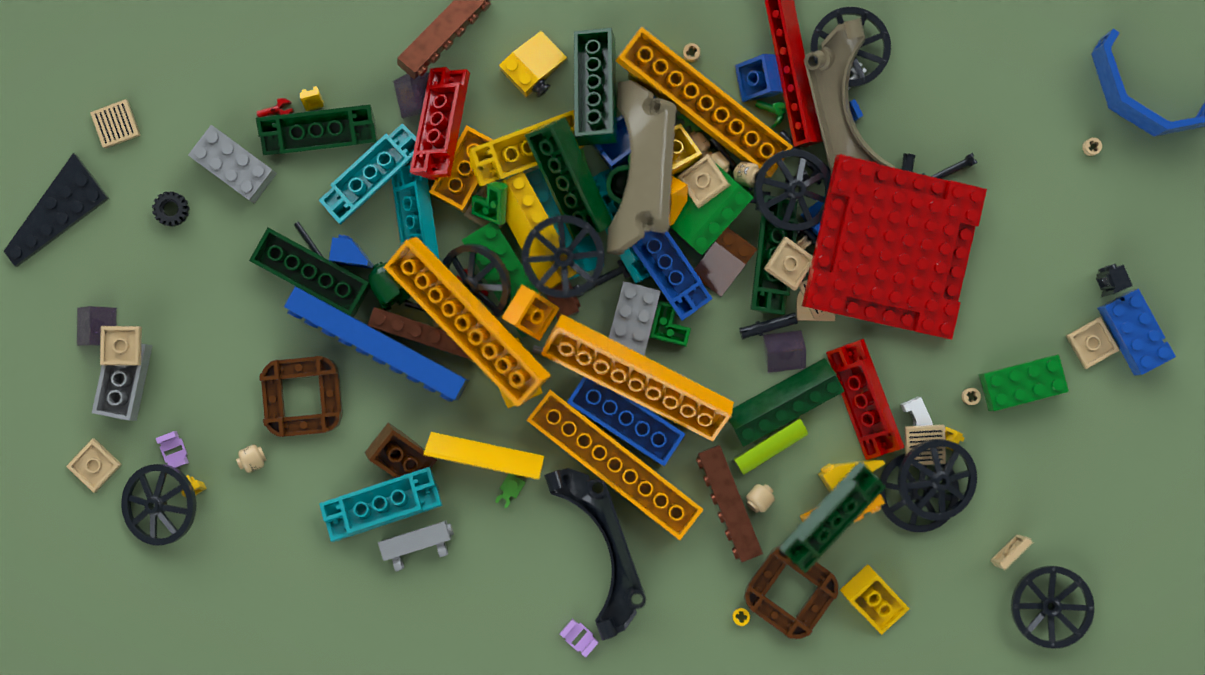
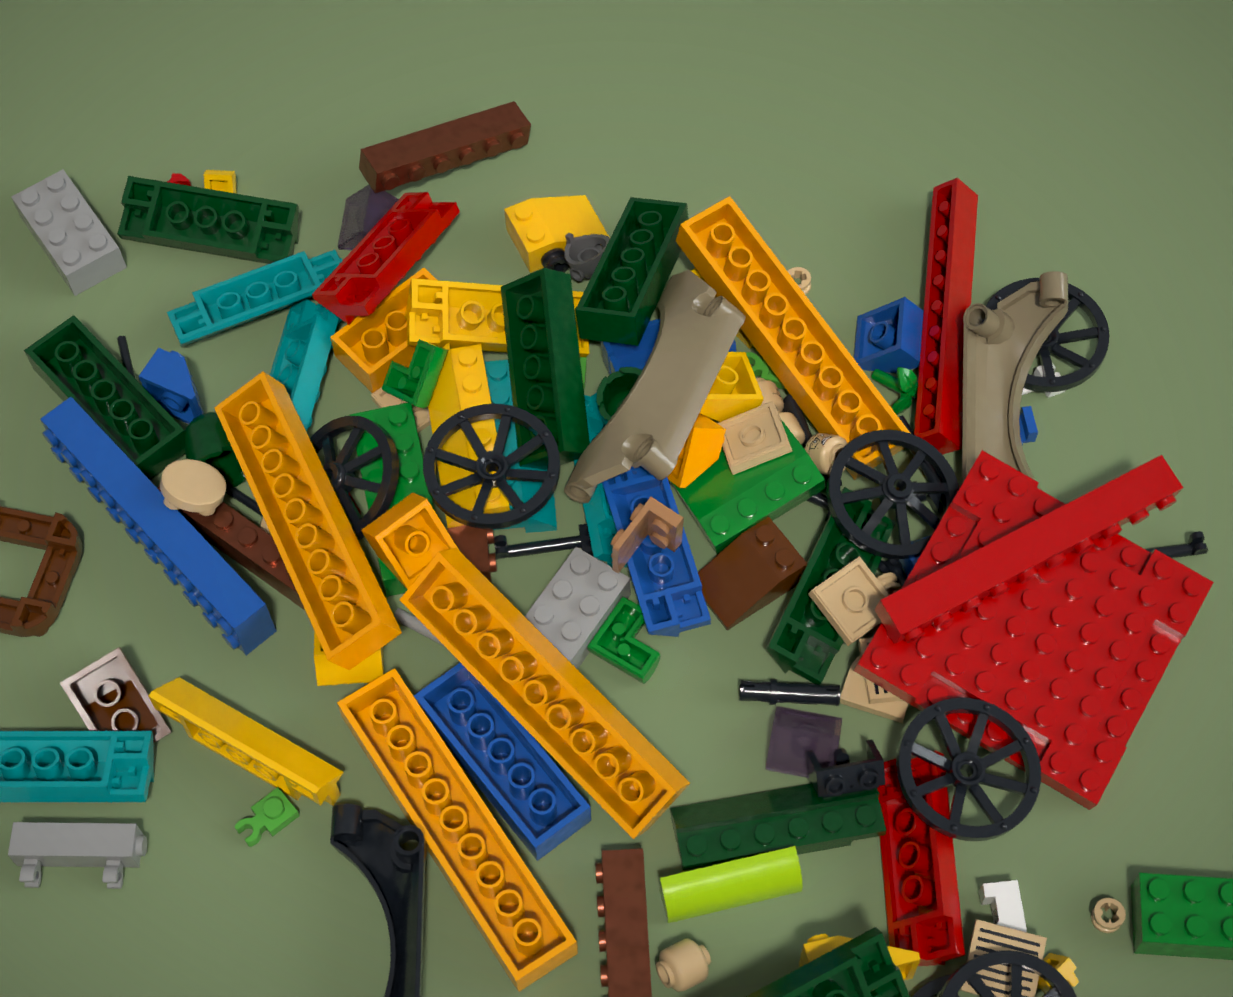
camera: 15 degrees right, 25 degrees down
(392, 320) = (192, 486): none -> tan tile
(560, 79) = (584, 254): none -> dark grey helmet
(672, 262) = (651, 519): none -> medium nougat bracket
(815, 368) = (846, 776): none -> black window
(883, 210) = (1027, 550): none -> red brick
(885, 347) = (972, 765): none -> black wheel

